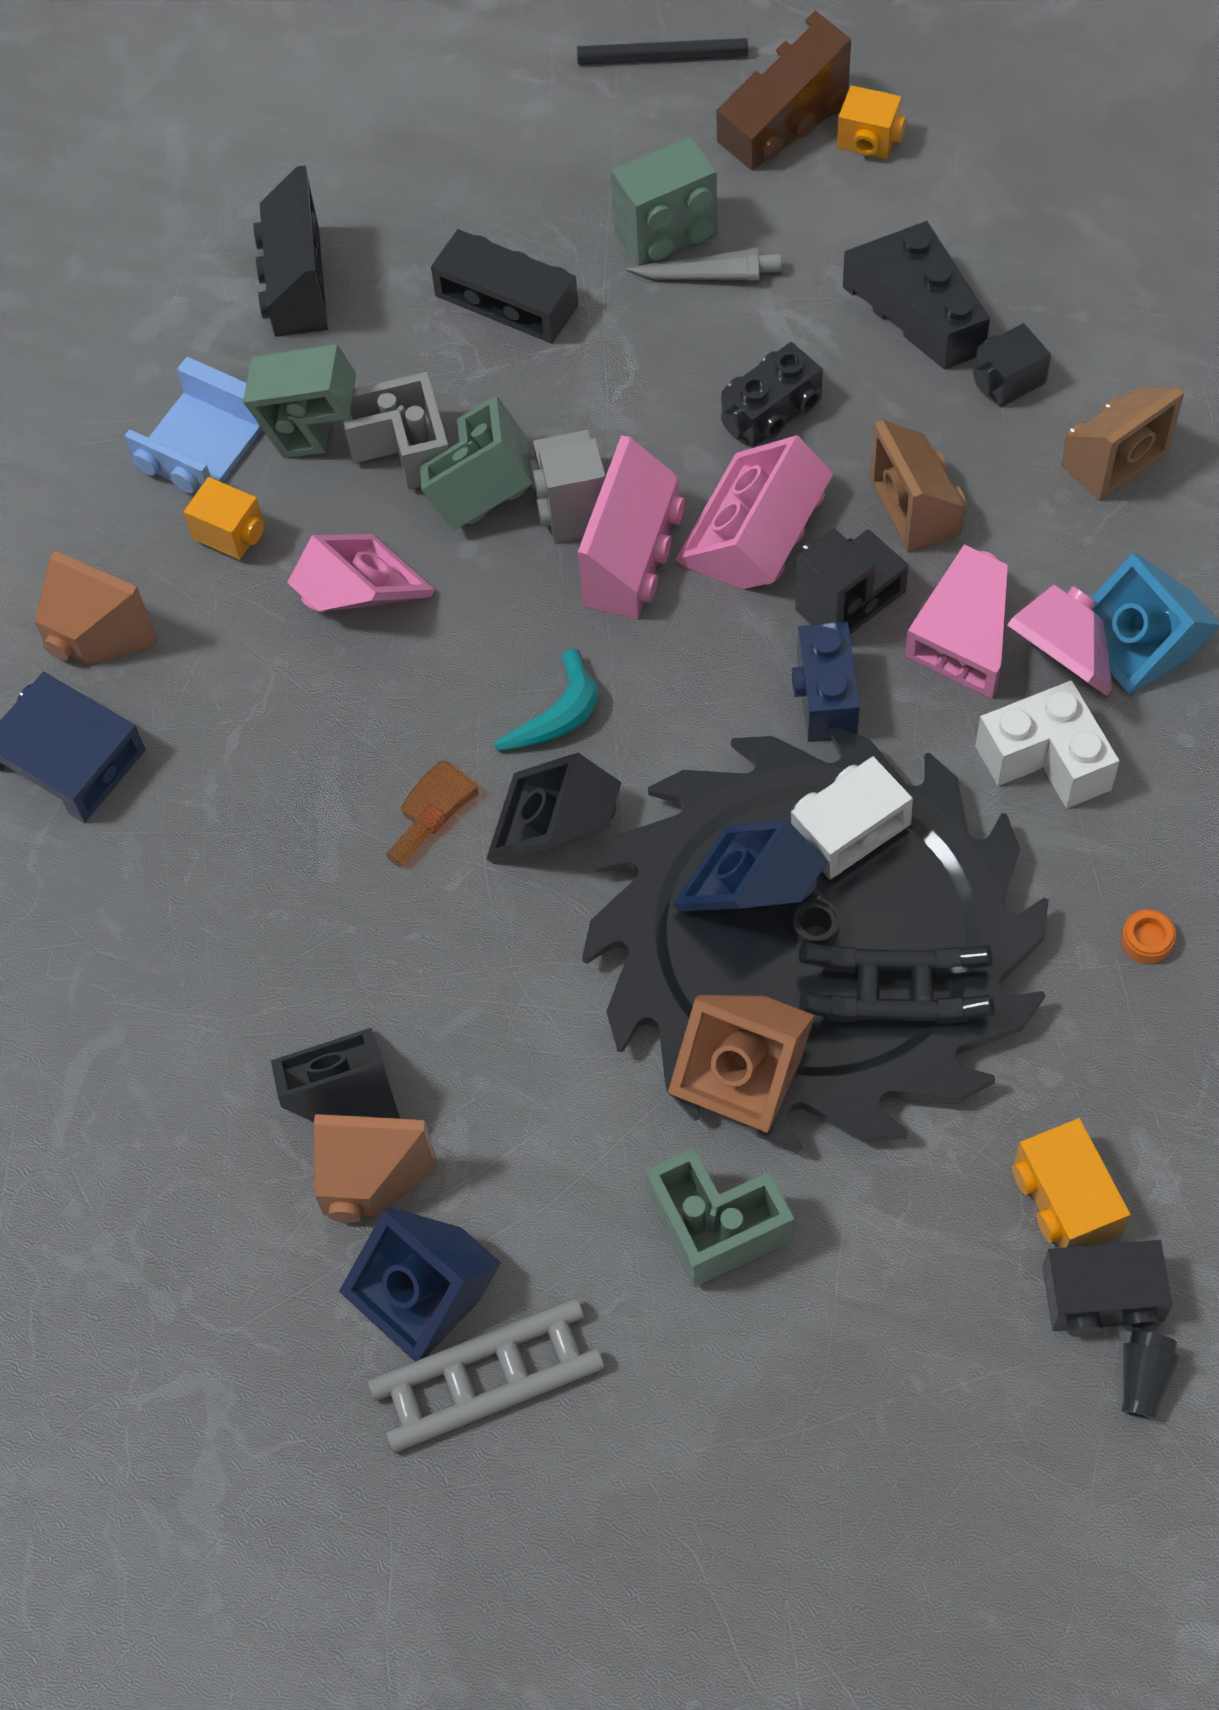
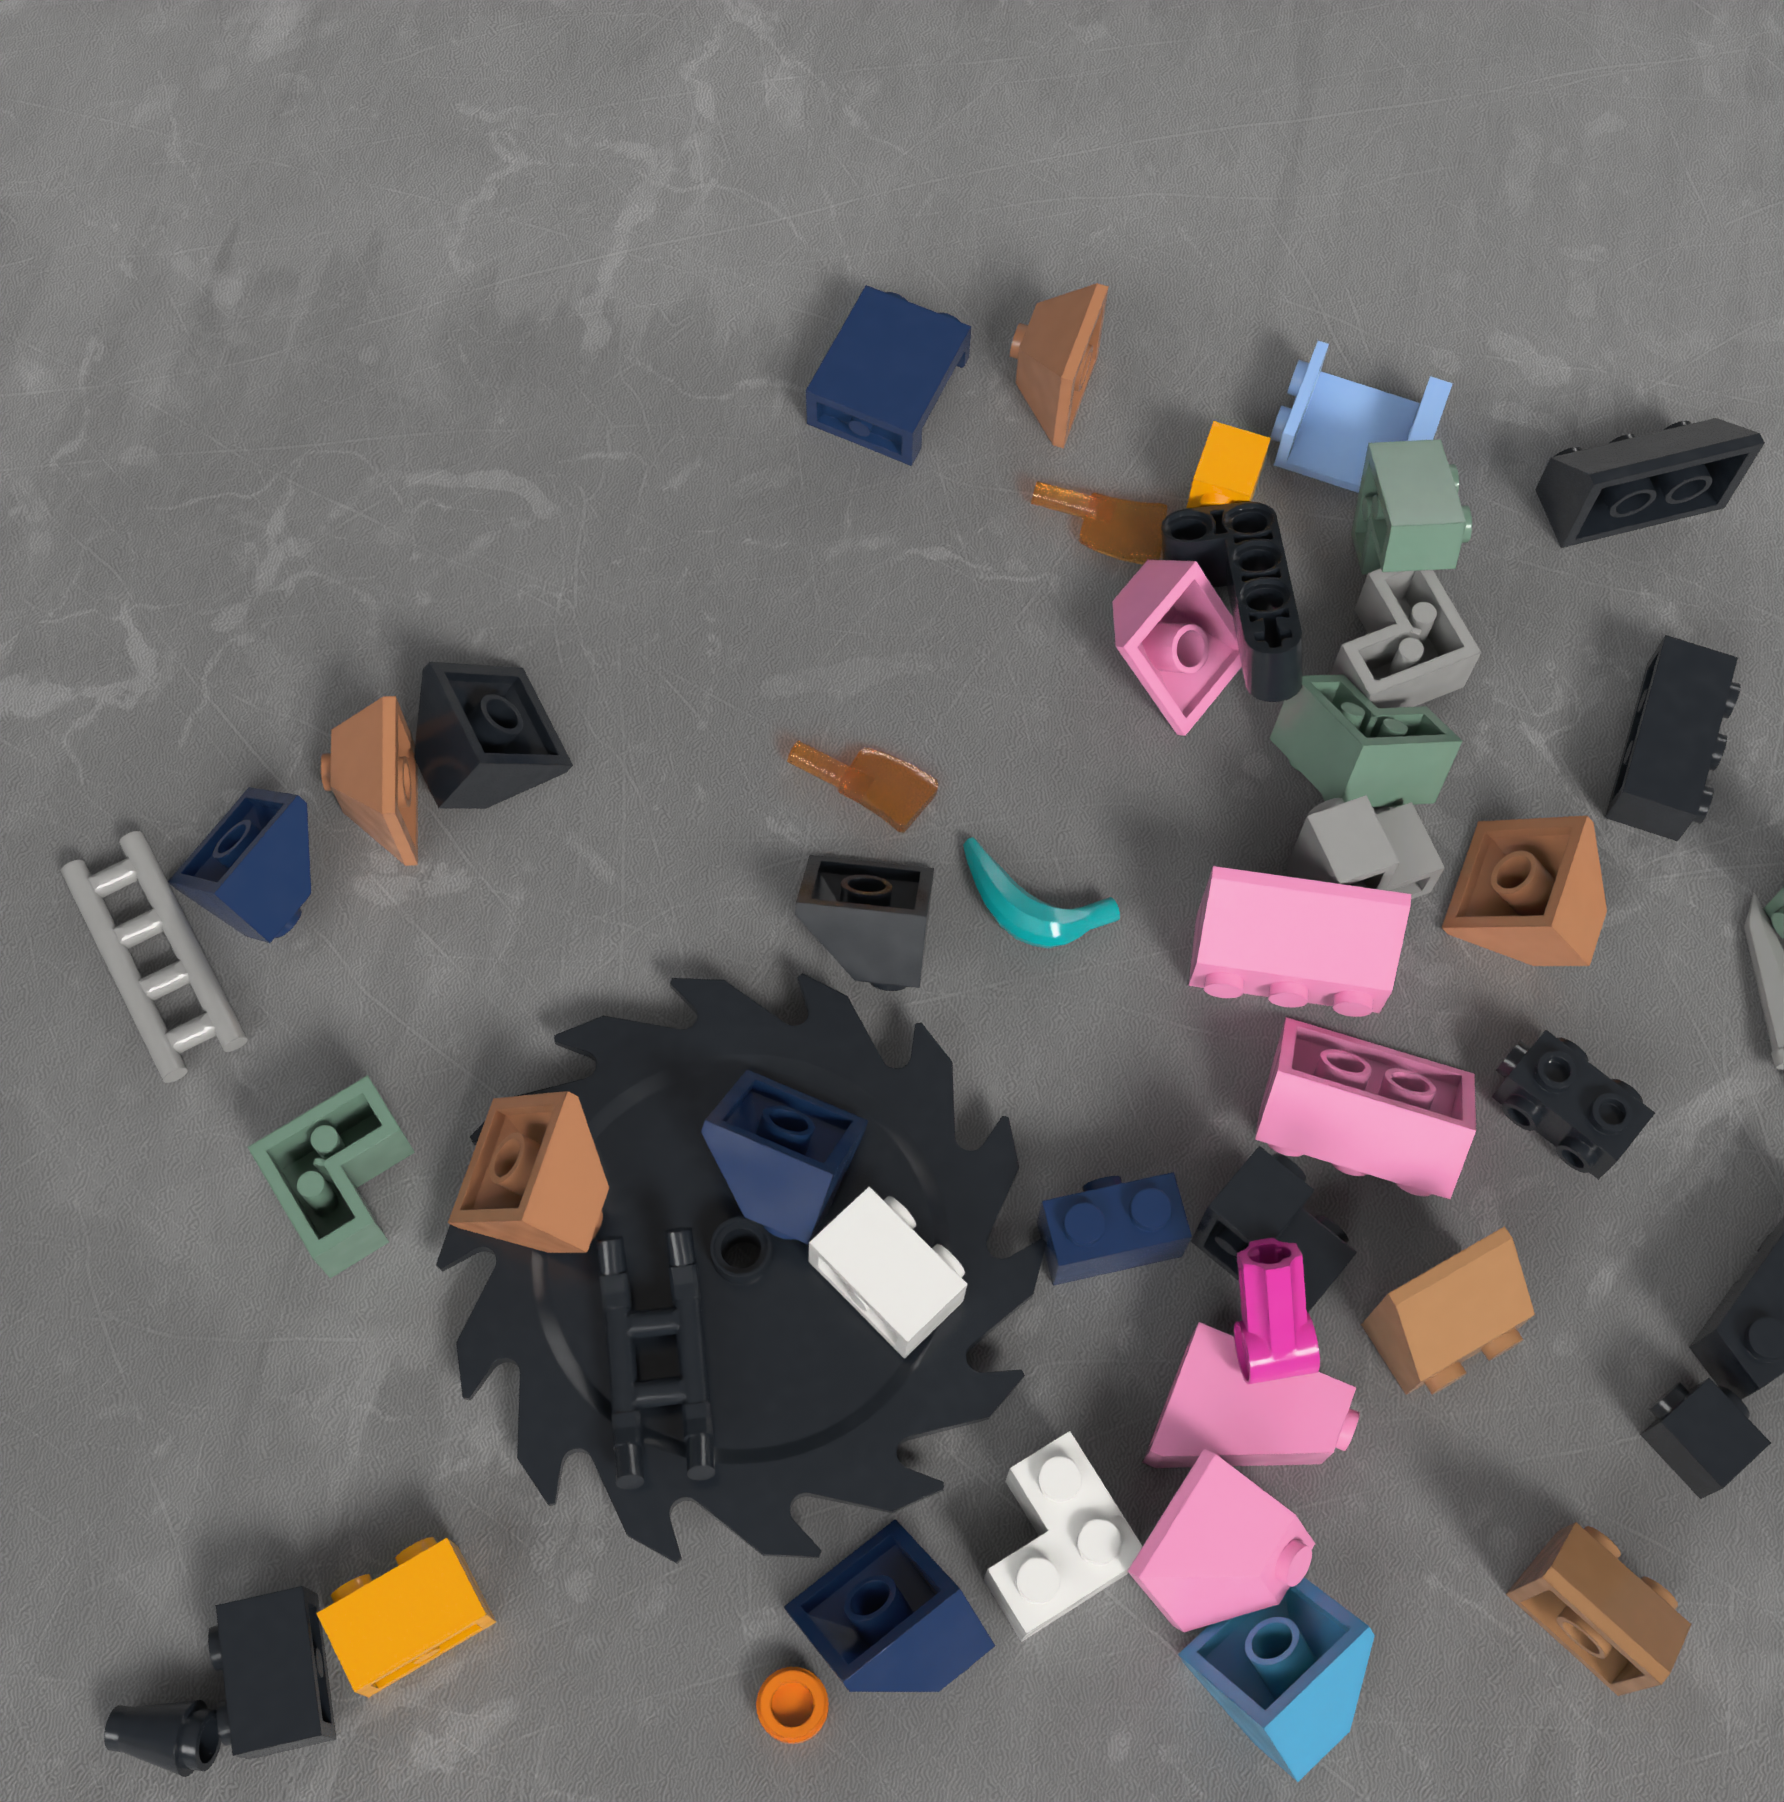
camera: 75 degrees right, 5 degrees up
(240, 613) = (1110, 524): none -> clear orange piece
(339, 504) = (1245, 551): none -> black beam
(606, 388) = (1531, 891): none -> nougat slope
(926, 570) = (1275, 1328): none -> dark pink piece
(1092, 858) = (890, 1618): none -> dark blue slope

